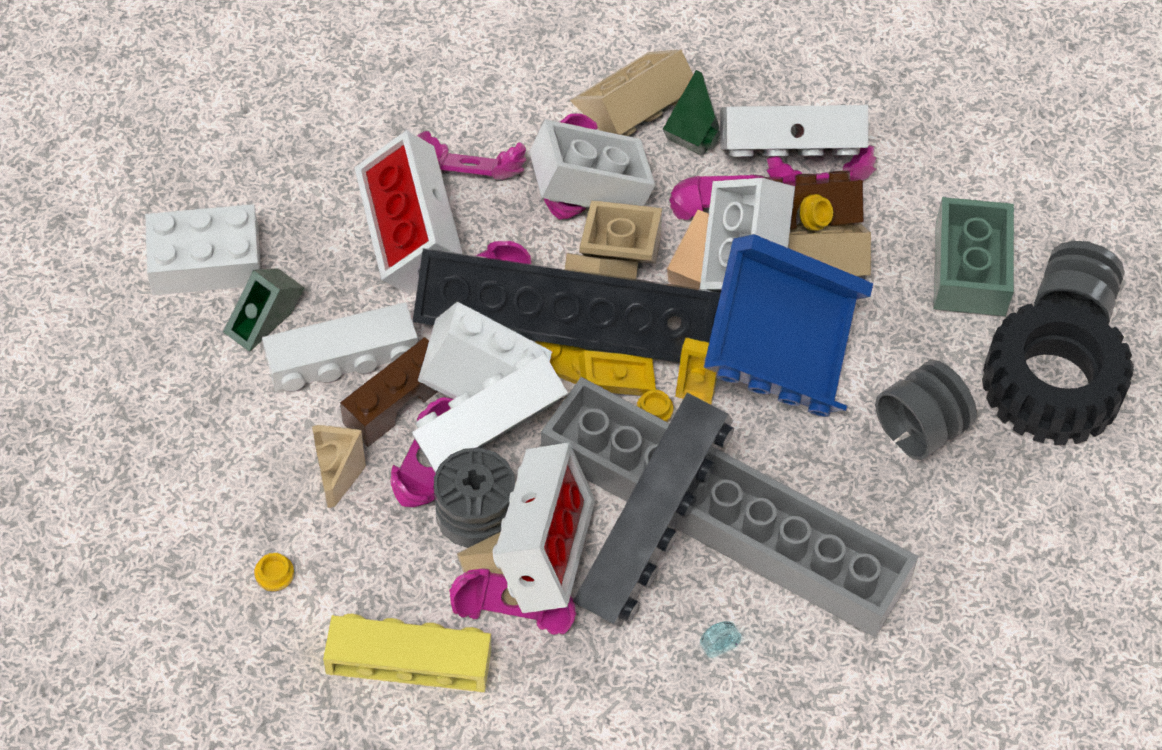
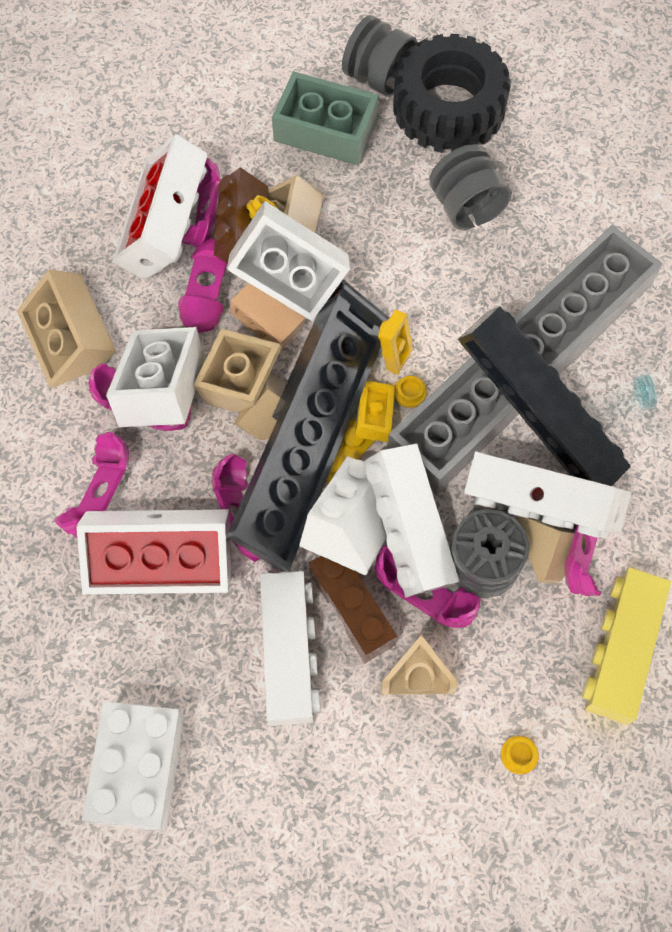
camera: 75 degrees left, 10 degrees up
(262, 306) = (221, 717): slope -> none
(694, 118) = (117, 283): dark green slope -> none
(783, 324) = (384, 261): blue panel -> none

